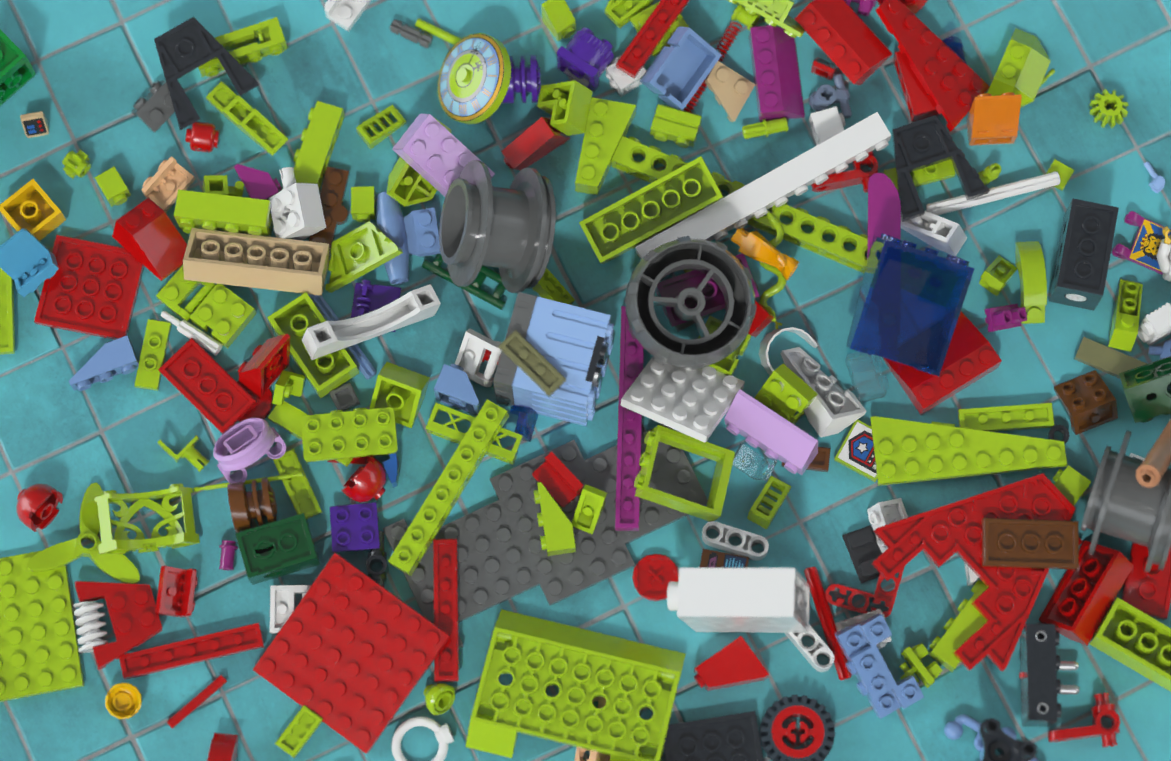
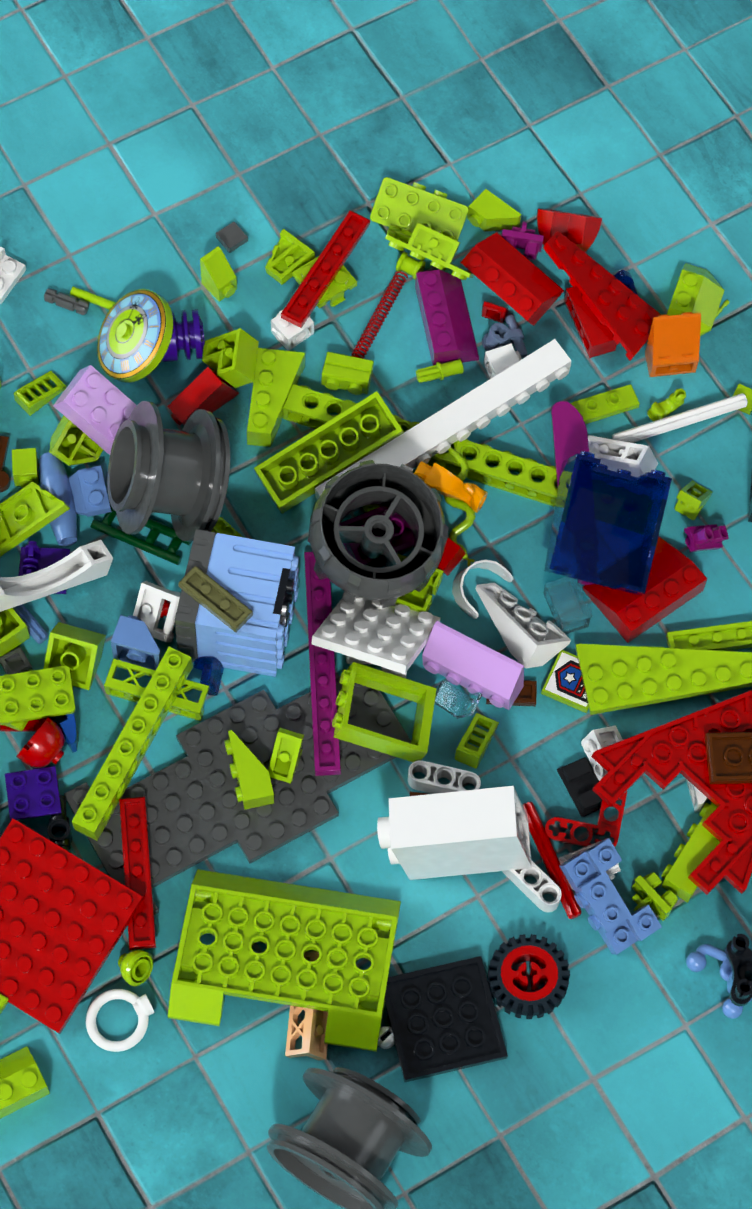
camera: 10 degrees left, 10 degrees down
(558, 480) = (251, 728): red panel -> none
(585, 58) = (249, 310): dark purple piece -> none
(653, 575) = (359, 825): red tile -> none
(680, 68) = (348, 314): medium blue piece -> none
(729, 88) = (399, 335): tan wing -> none
(730, 667) = (450, 912): red slope -> none
(786, 394) = (486, 623): lime piece -> none
(851, 177) = (529, 413): red piece -> none
(924, 145) = (606, 375): black wing -> none
(1033, 281) = (731, 500): lime arch -> none

